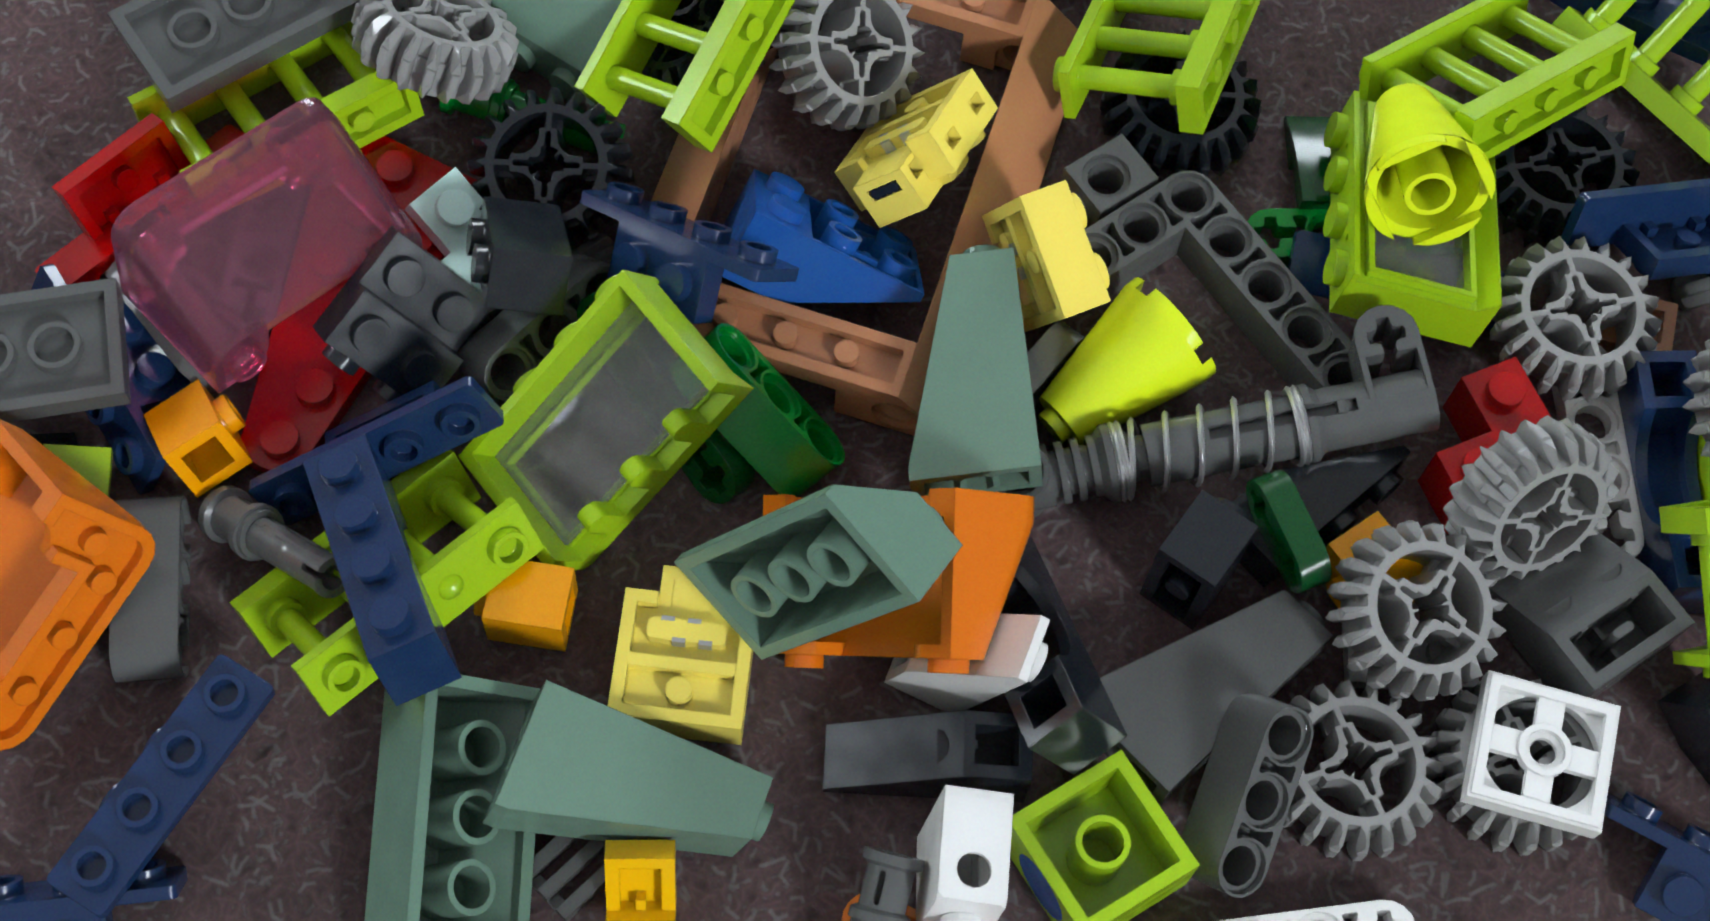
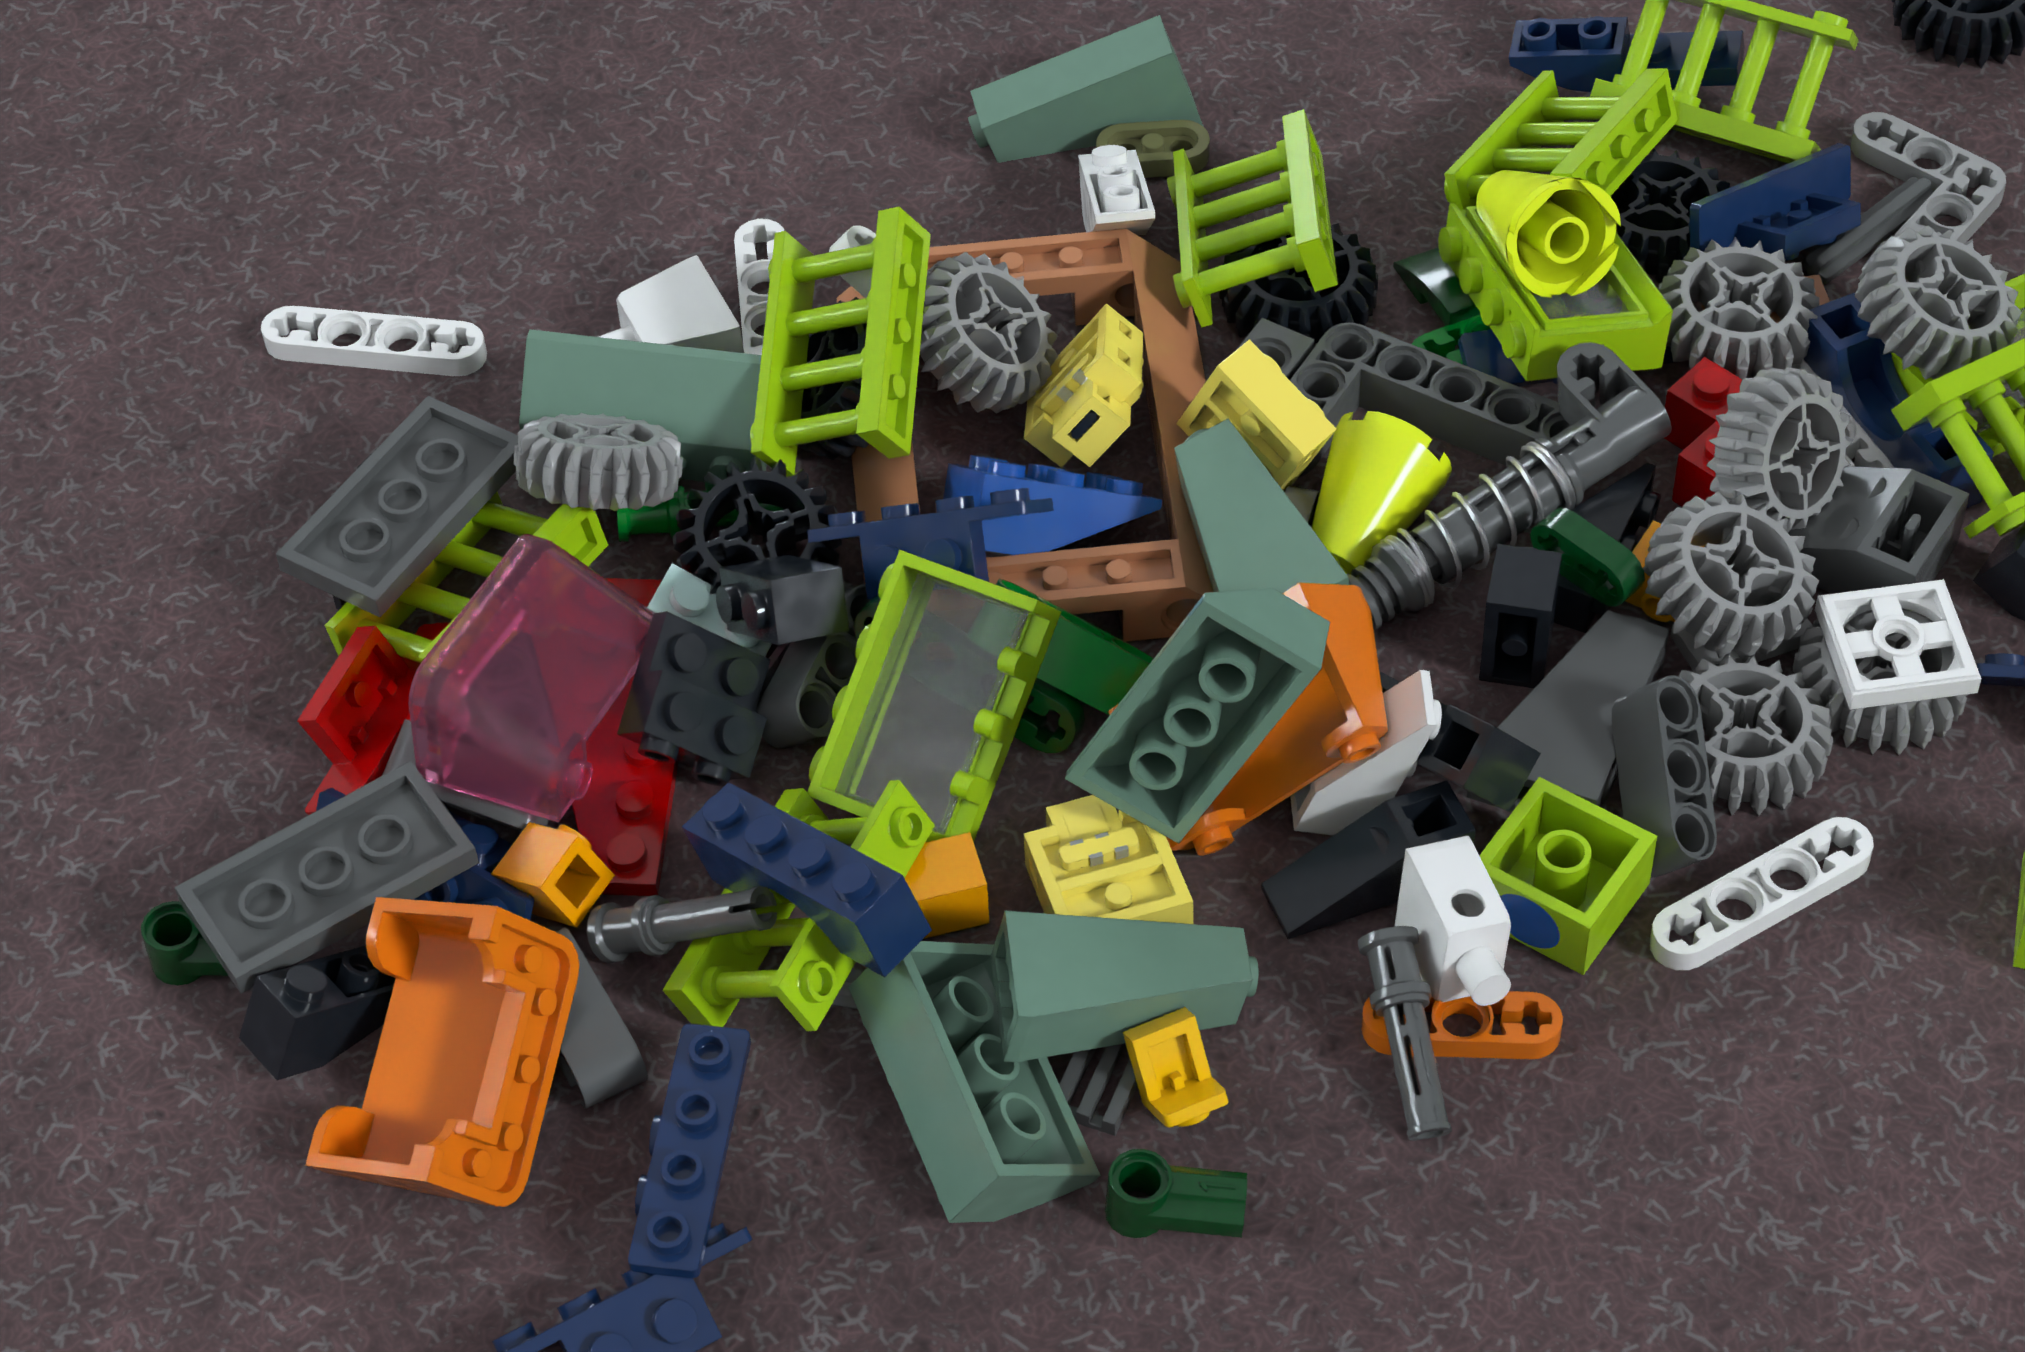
camera: 15 degrees left, 15 degrees down
(400, 432) = (763, 768): dark blue bracket -> none

